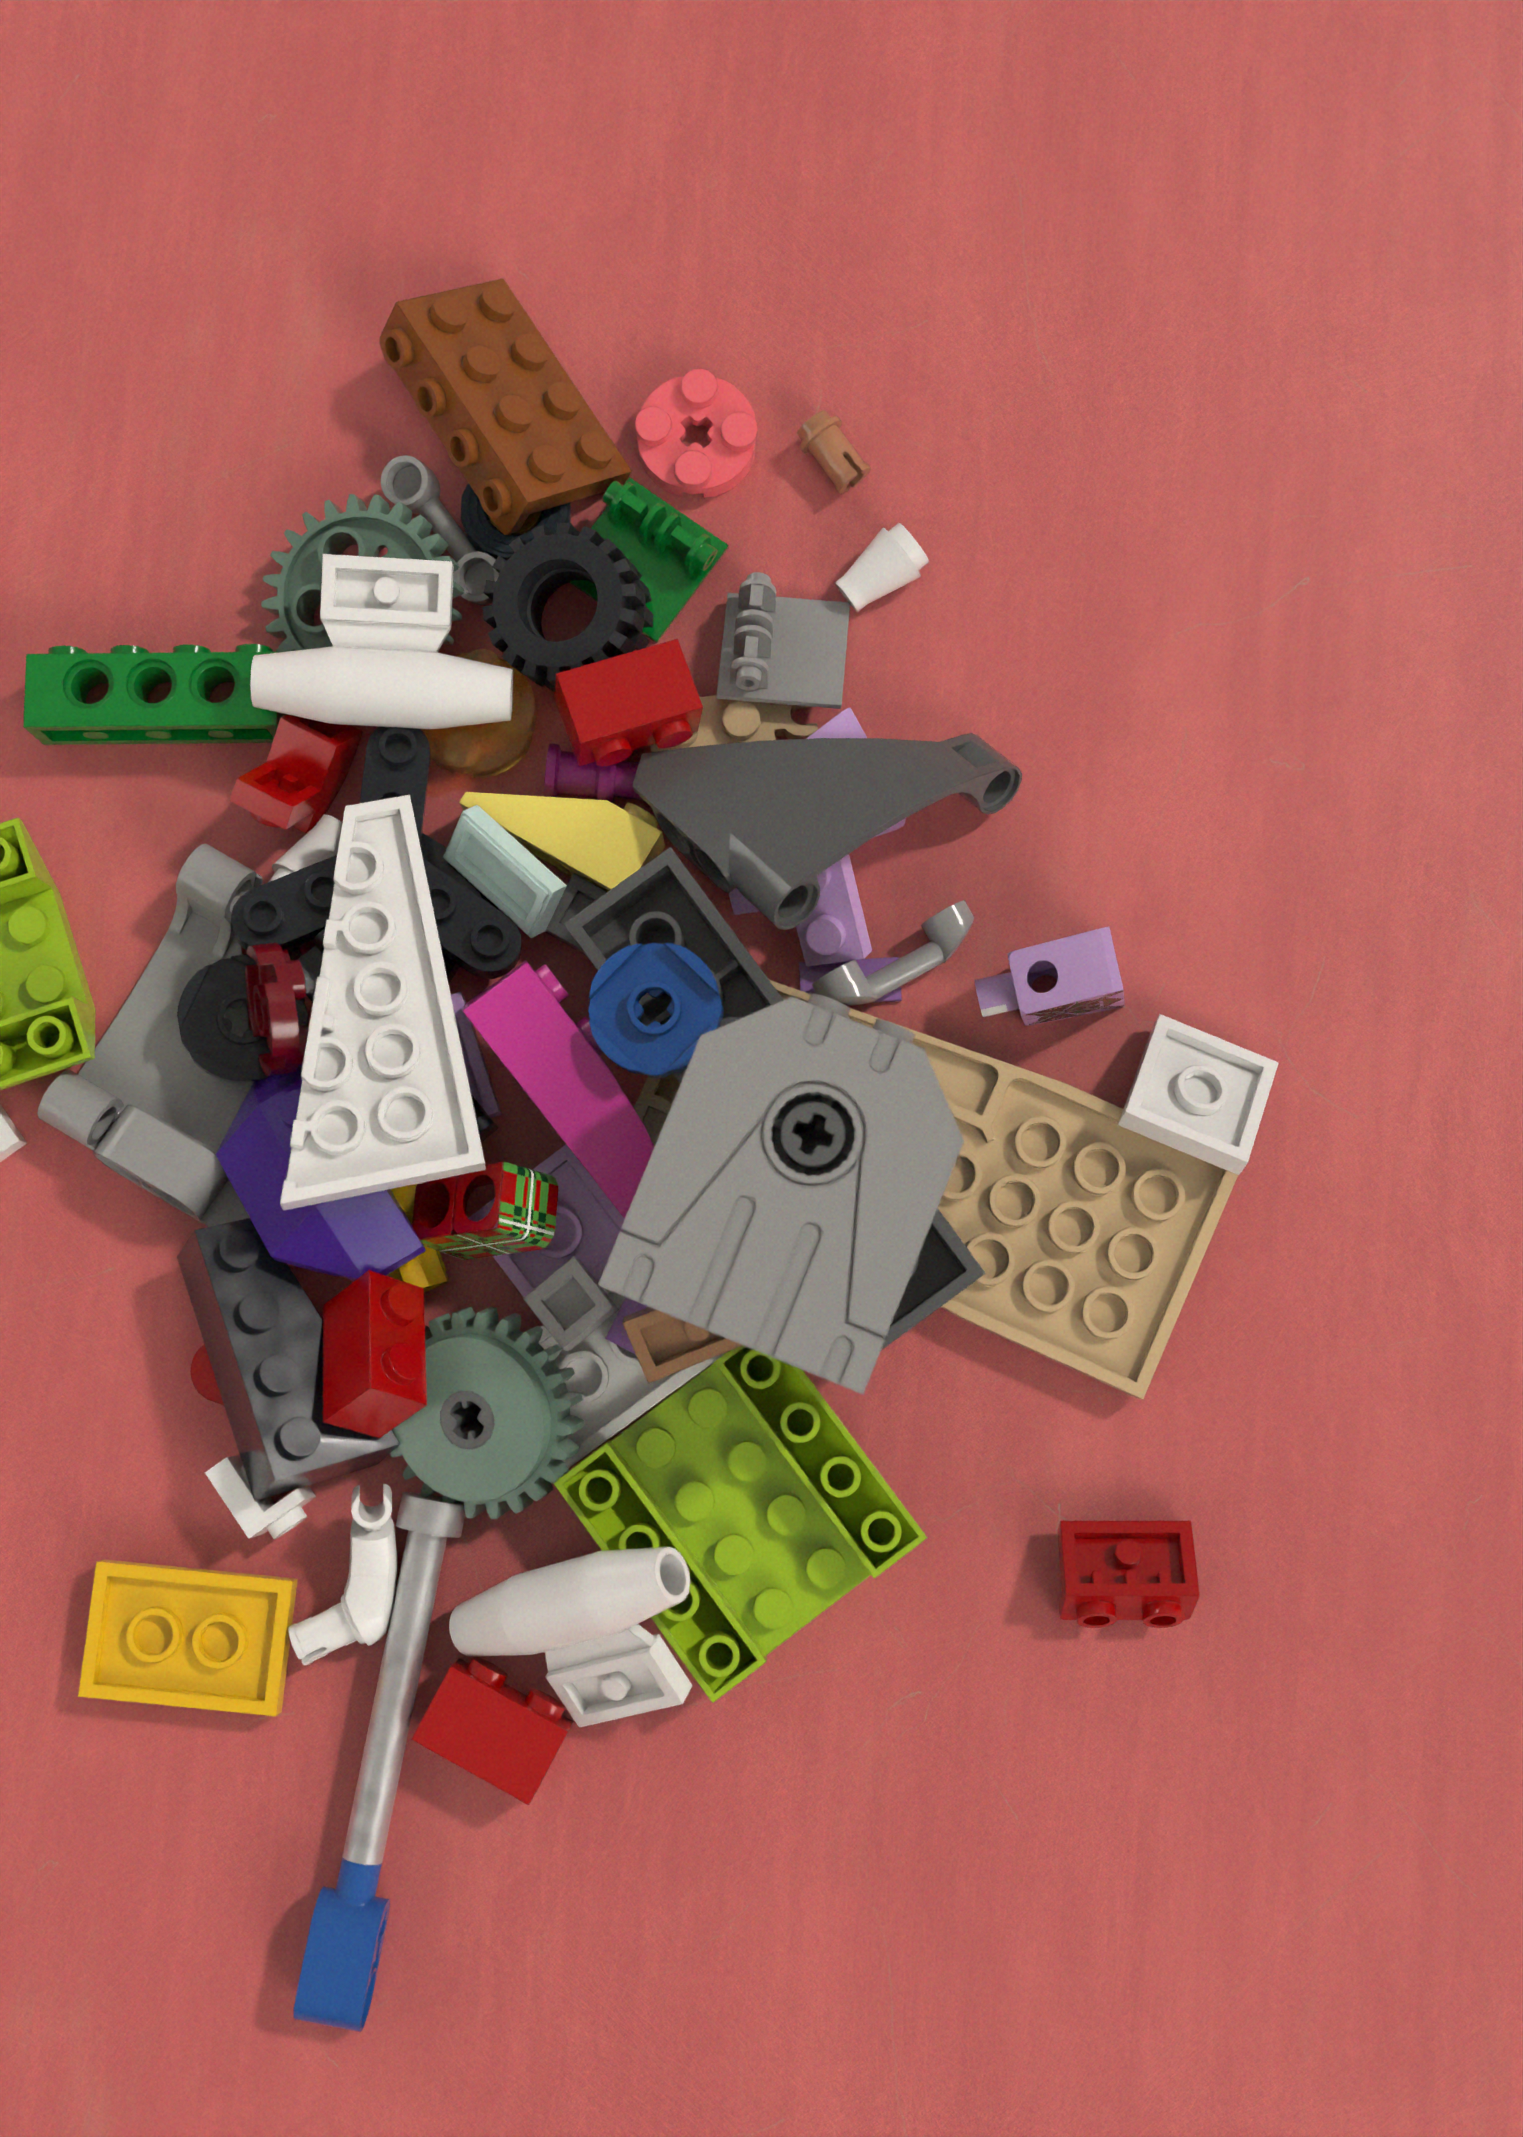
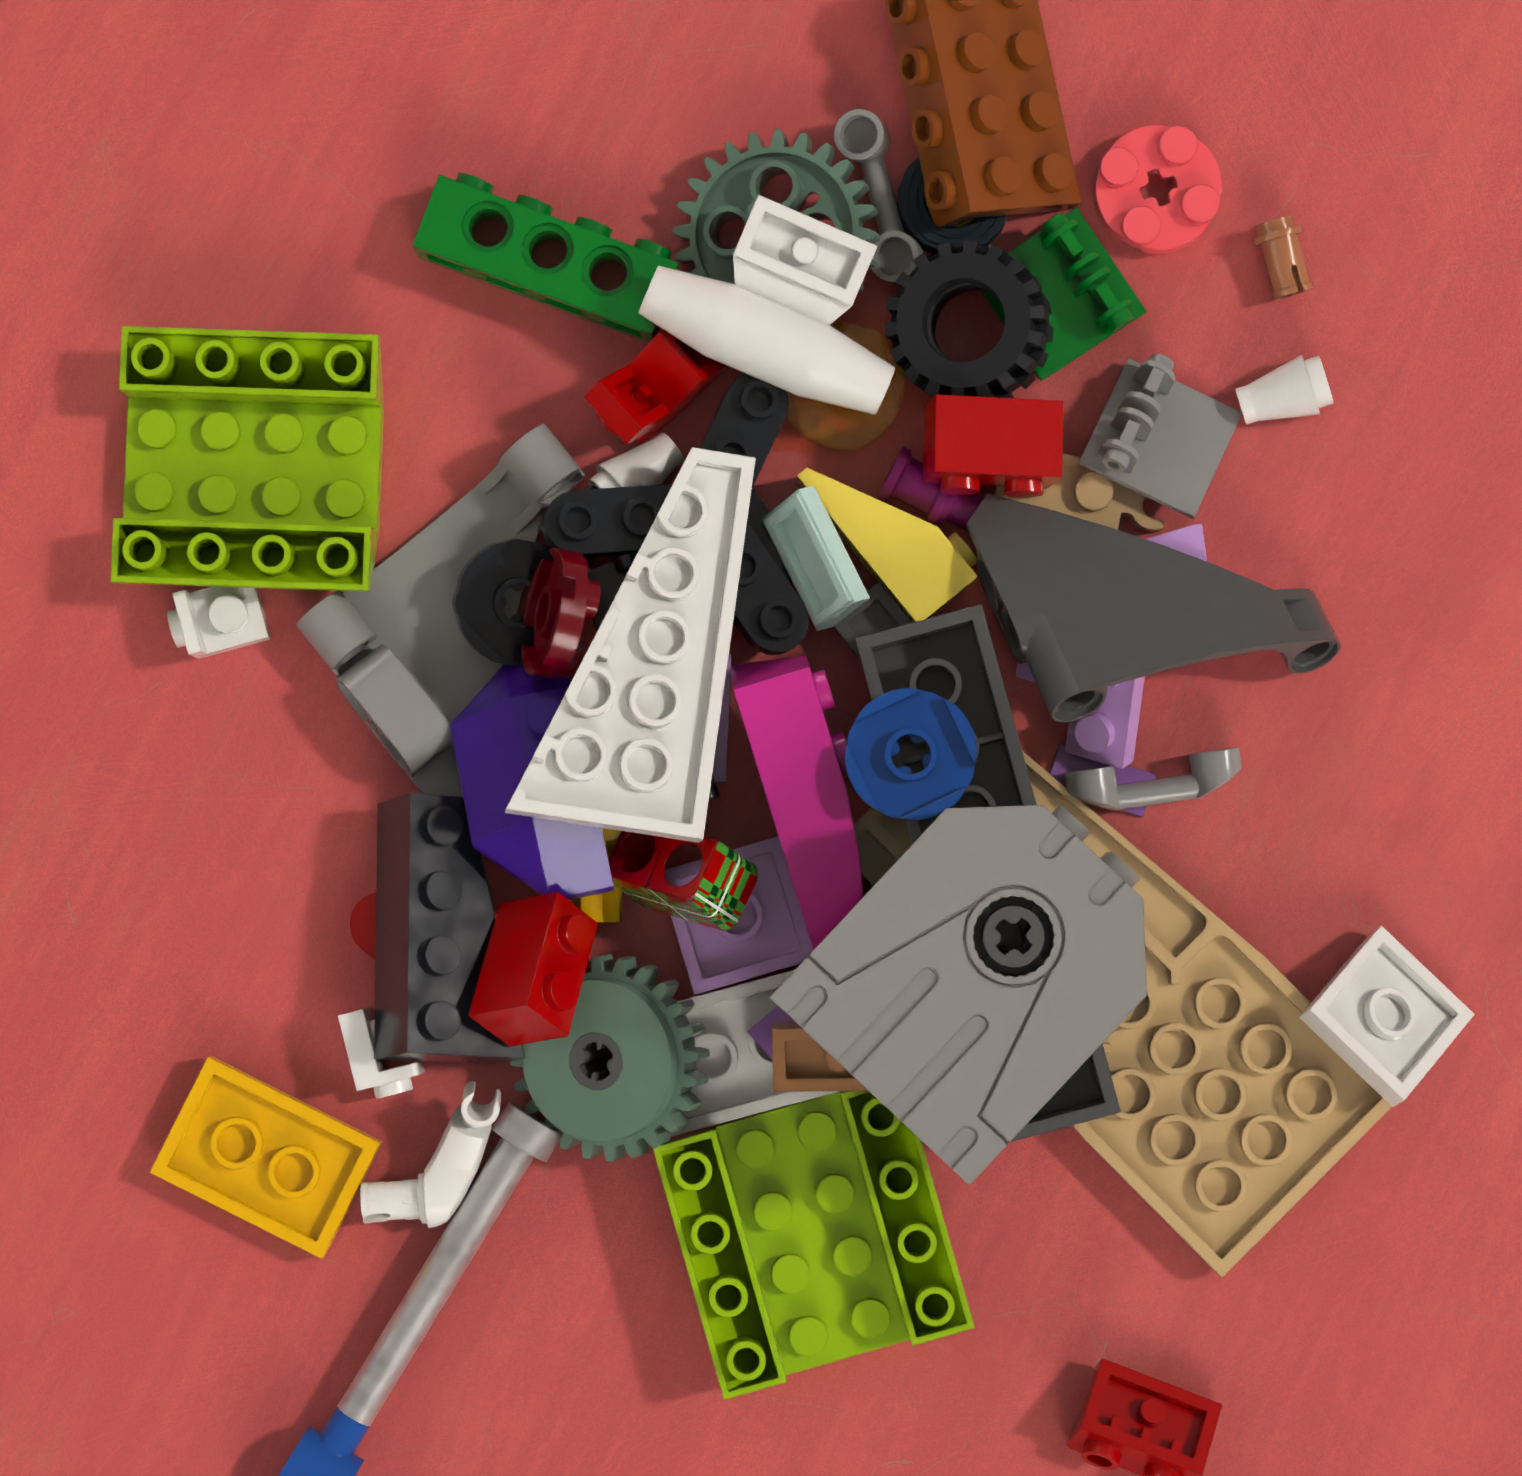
camera: 20 degrees right, 5 degrees up
(494, 1728) = (516, 1346): red brick -> none
(570, 1304) = (728, 990): light grey plate -> none
(588, 1627) = (635, 1290): white plate -> none
(1084, 974) = (1324, 862): lavender torso -> none

